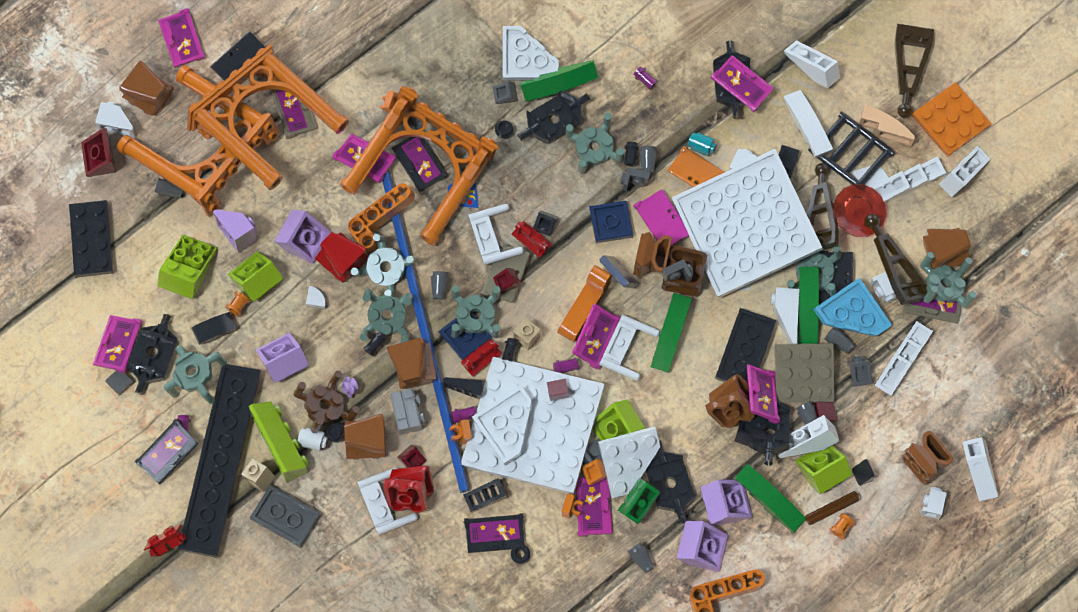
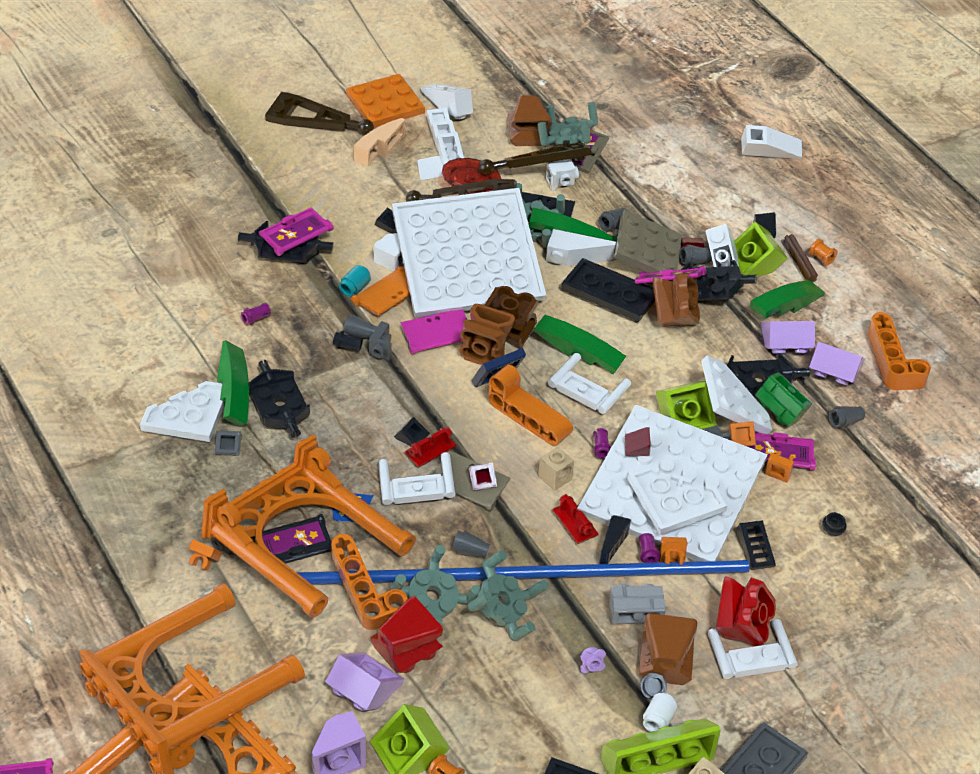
camera: 80 degrees left, 25 degrees down
(234, 58) = (79, 719): black door -> none
(282, 357) = (536, 729): lavender slope -> none
(291, 113) = (168, 668): door -> none
(315, 298) = (456, 682): white tile -> none
(330, 397) = (616, 688): reddish brown plate -> none
(352, 150) = (264, 605): door -> none
(377, 341) = (541, 630): black pin -> none
(411, 457) = (699, 611): dark red slope -> none
(413, 363) = (577, 581): dark orange piece -> none
(465, 342) = (541, 533): dark blue tile -> none
(479, 304) = (522, 500): sand green plate -> none
(492, 532) = (801, 546): door -> none
(504, 129) = (277, 449): black plate -> none
(510, 349) = (566, 487): black pin -> none
(598, 136) = (341, 376): sand green plate -> none
(599, 331) = (572, 407): door -> none
(611, 221) = (426, 375): dark blue tile -> none
(674, 271) = (519, 302): dark grey bracket -> none
(743, 433) = (709, 309): black slope -> none
(808, 123) = (351, 196): white slope -> none
(815, 64) = (290, 177): white slope -> none
(853, 311) = (585, 197): medium azure plate -> none
(860, 371) = (652, 207): dark grey bracket -> none
(872, 140) = (392, 157): black bar -> none
(903, 358) = (646, 180): white slope -> none
(927, 457) = (760, 172): dark orange piece -> none
(934, 503) = (804, 182): white brick -> none

